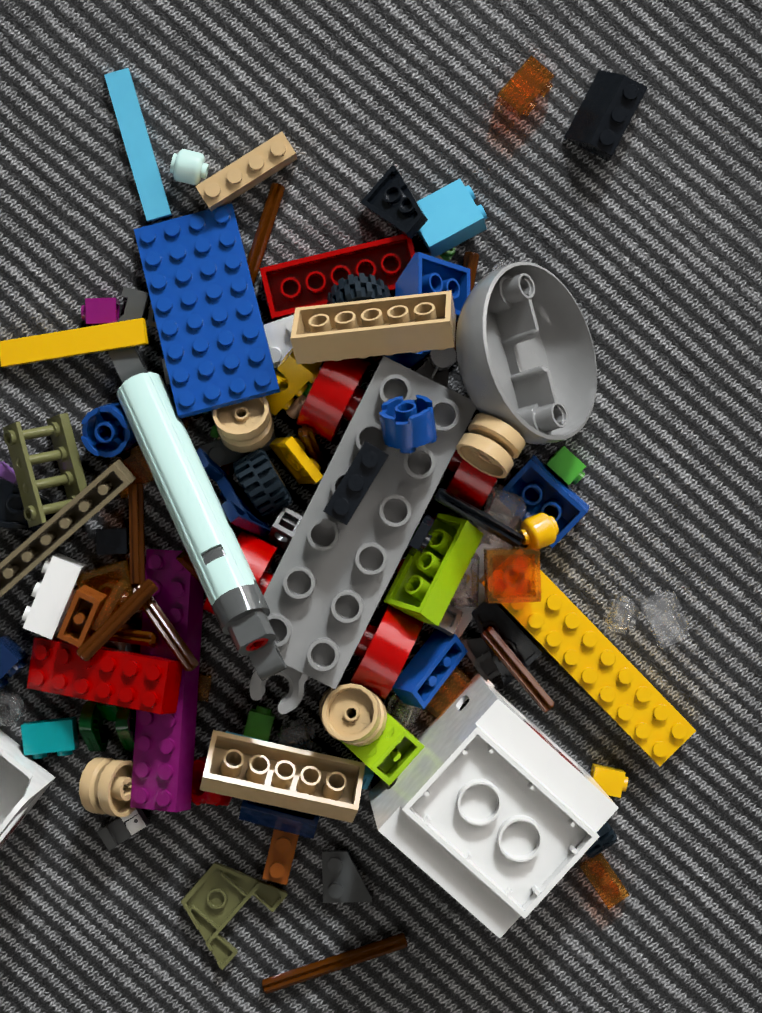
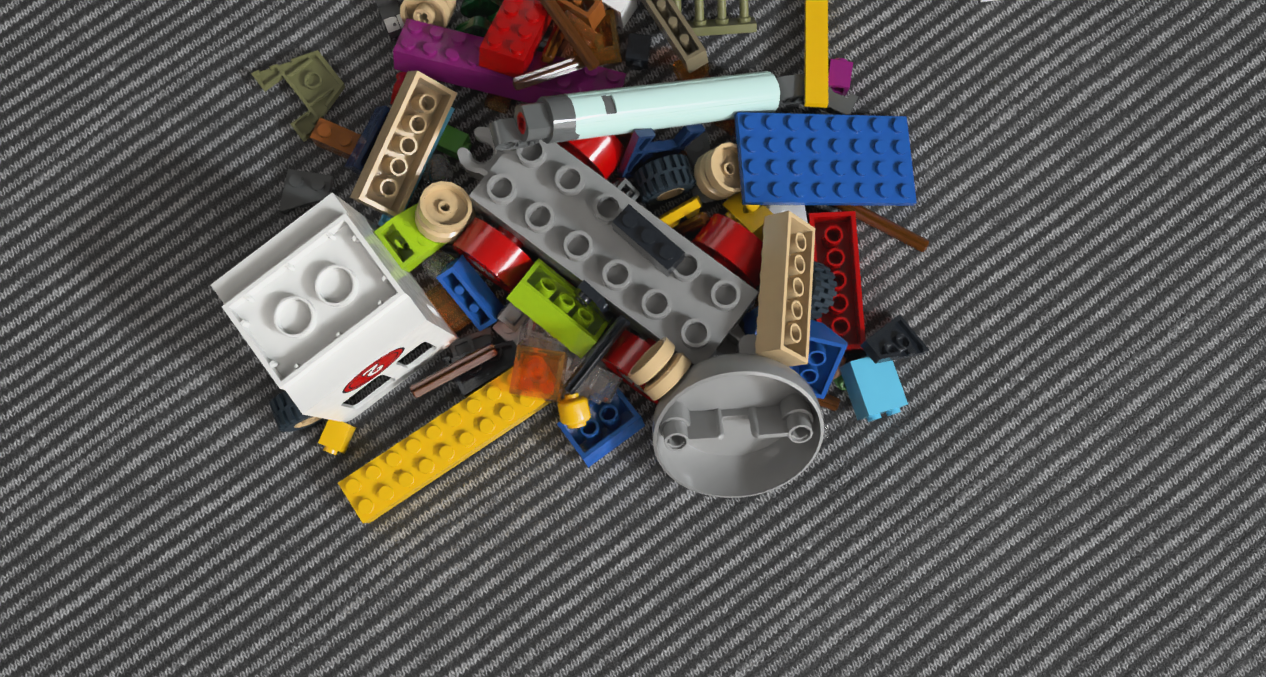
camera: 105 degrees right, 10 degrees down
(97, 435) = (734, 57): blue brick -> none
(136, 533) = (641, 66): reddish brown axle -> none
(138, 145) = (980, 134): medium azure tile -> none
(189, 167) = (954, 171): light aqua head -> none
(247, 172) = (942, 219): tan brick -> none
(334, 963) = (233, 170): reddish brown axle -> none
(408, 423) = (693, 294): blue brick -> none
(525, 88) = (981, 481): clear orange brick -> none
(566, 466) = (628, 452): bright green brick -> none
(604, 880) = (248, 417): clear orange plate -> none
(605, 113) = (947, 552): black slope -> none
(621, 614) = (483, 477): clear head -> none
(664, 618) = (472, 516): clear brick -> none

